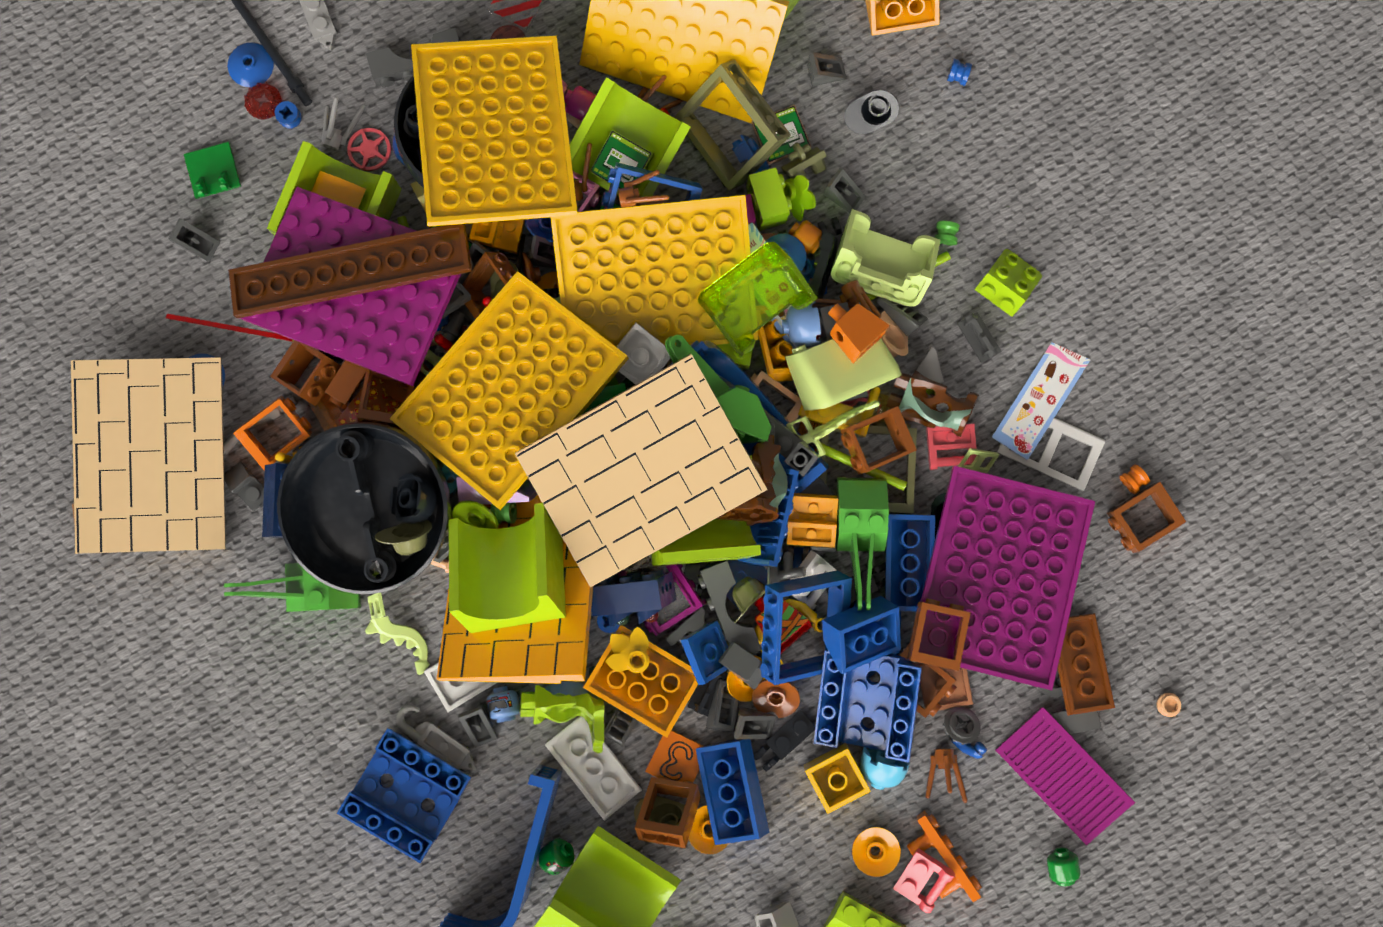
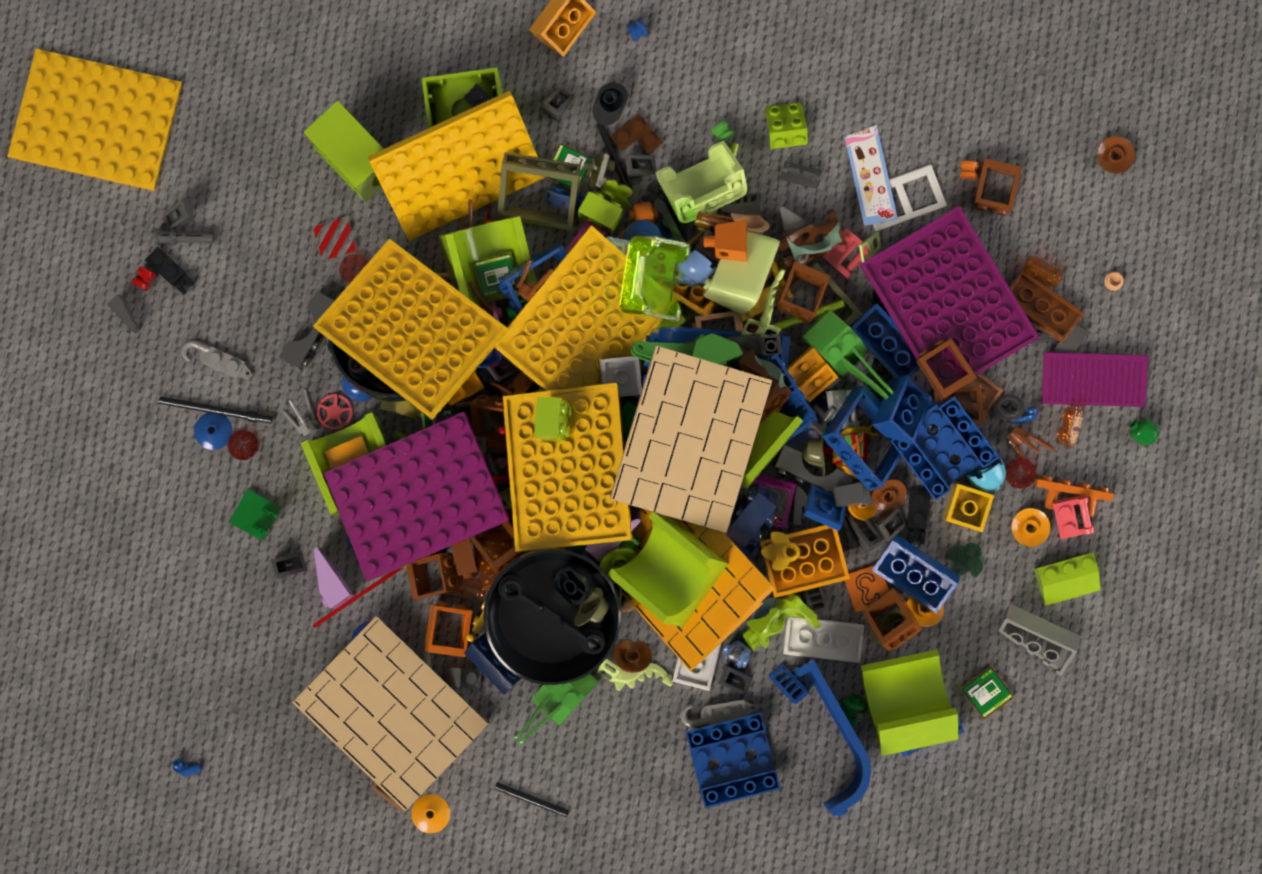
camera: 35 degrees left, 0 degrees up
(111, 583) = (430, 803): none -> light orange dish
(199, 652) = (531, 799): none -> black bar
(211, 293) = (330, 582): none -> lavender slope
(292, 119) = (270, 441): blue wheel -> none
(350, 270) = (407, 490): reddish brown plate -> none
(414, 605) = (629, 649): none -> dark orange dish
(521, 797) = (800, 696): none -> blue slope
(535, 330) = (552, 419): none -> lime brick
(578, 102) = (435, 261): dark pink head -> none
(785, 821) = (963, 561): none -> clear green plate
(830, 163) = (613, 155): none -> black bar
(871, 159) = (636, 130): none -> reddish brown plate
(915, 805) = (1027, 479): none -> clear red gear
(990, 800) = (1067, 435): none -> clear orange hinge
(1114, 644) = (1049, 276): none -> clear orange hinge
(1293, 594) = (1122, 148): none -> dark orange dish

